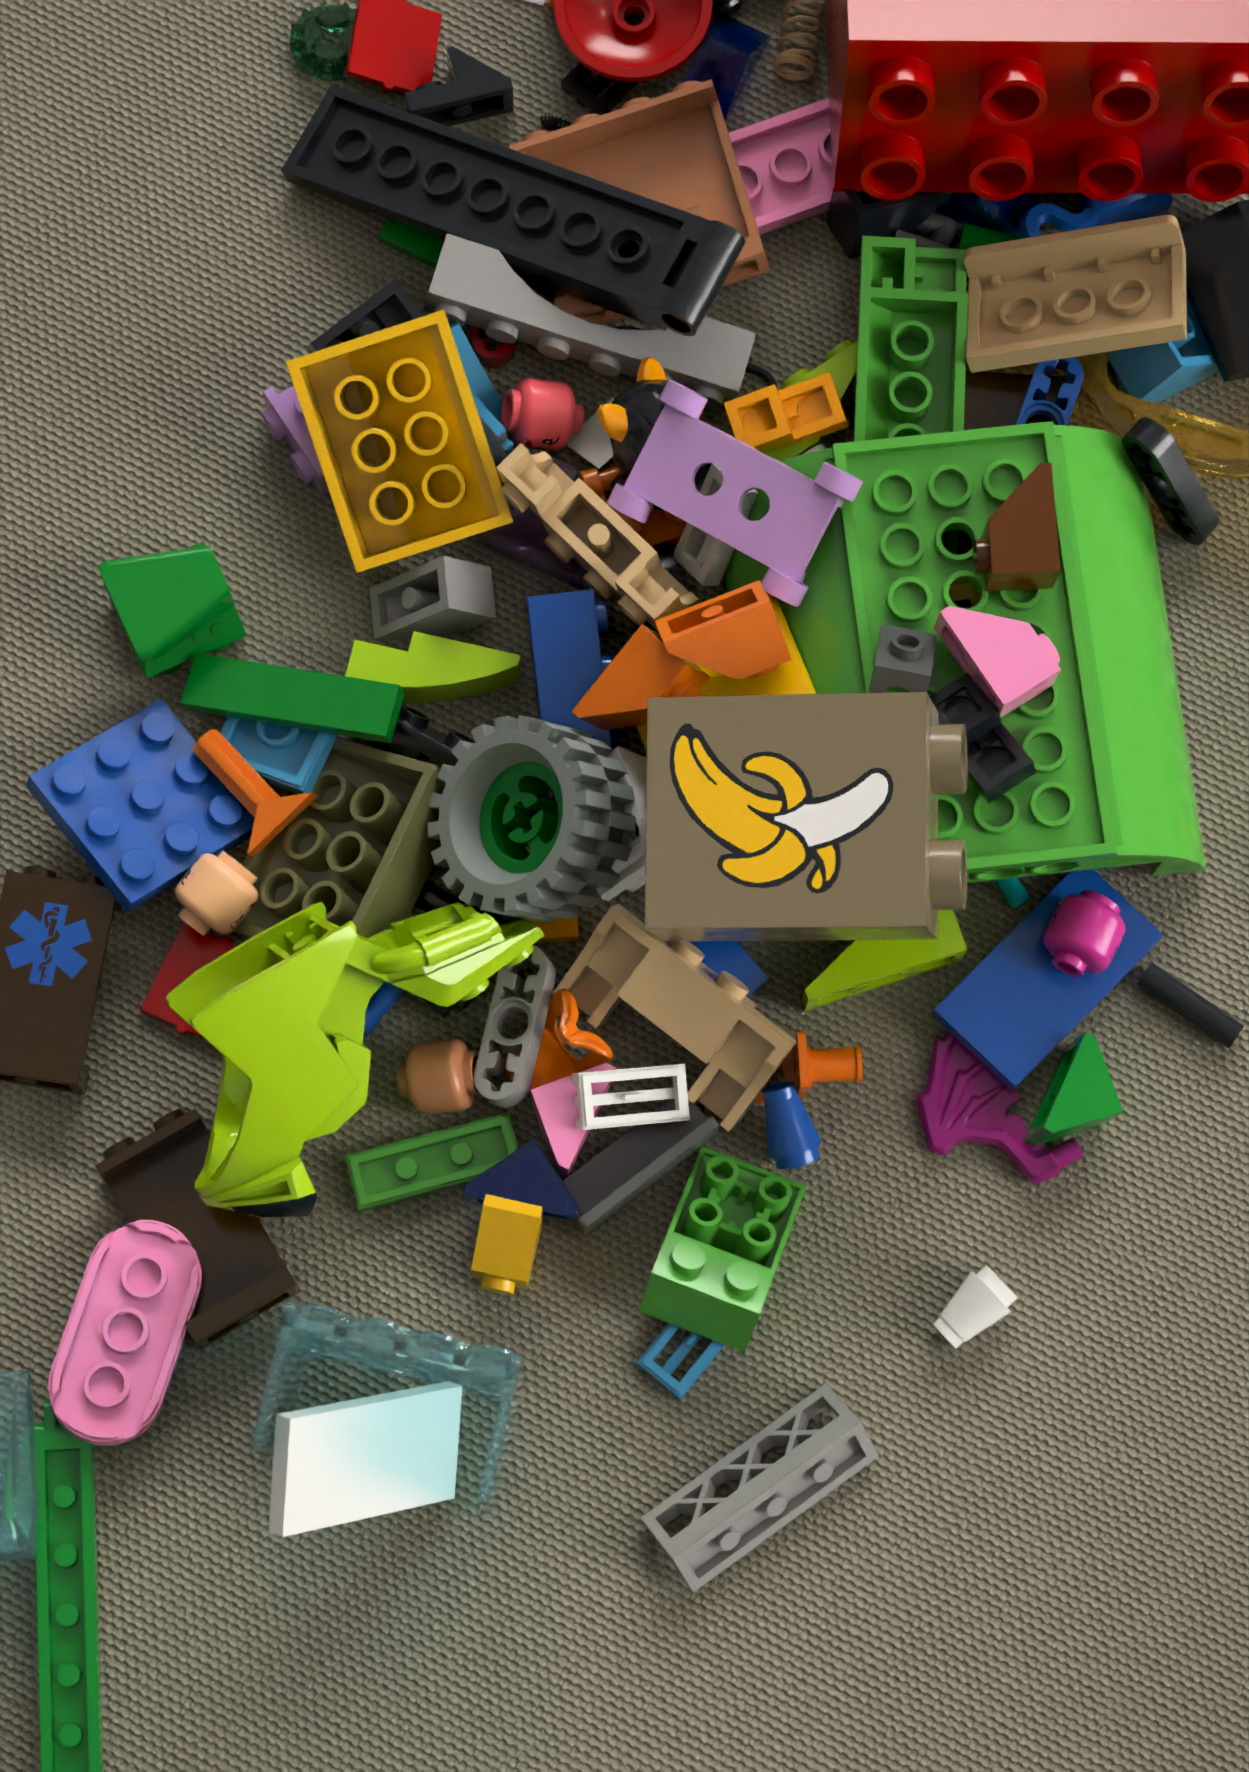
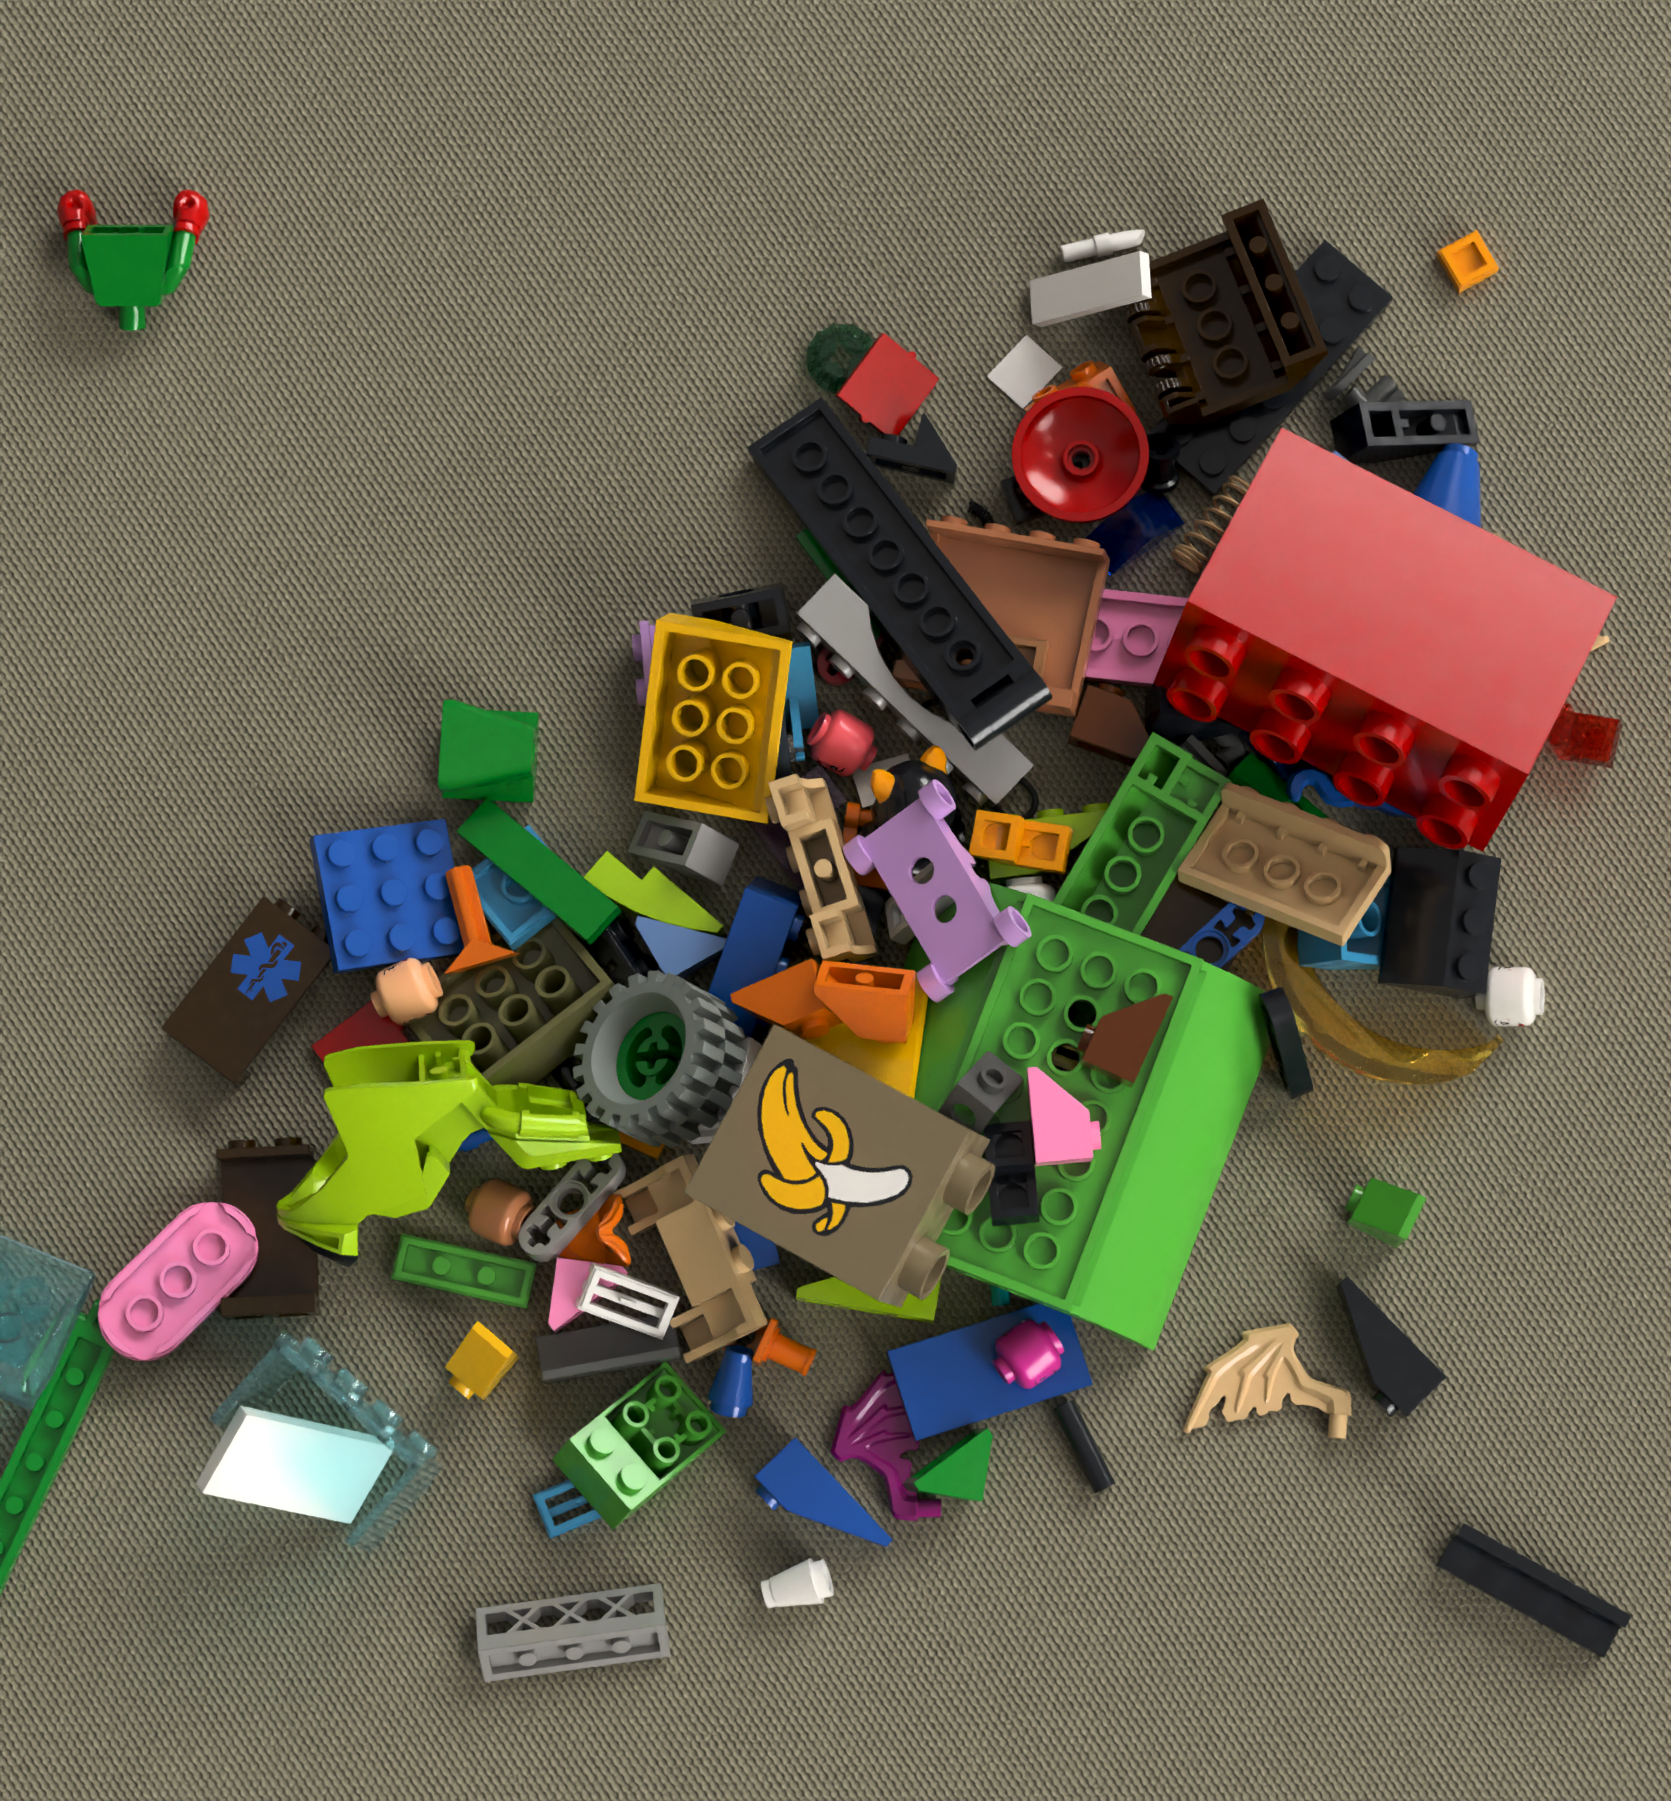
camera: 35 degrees right, 5 degrees up
(480, 700) = (678, 948): none -> medium blue slope
(527, 1179) = (520, 1325): clear blue slope -> none
(809, 265) = (1109, 725): none -> reddish brown slope
(933, 1200) = (811, 1492): none -> blue slope

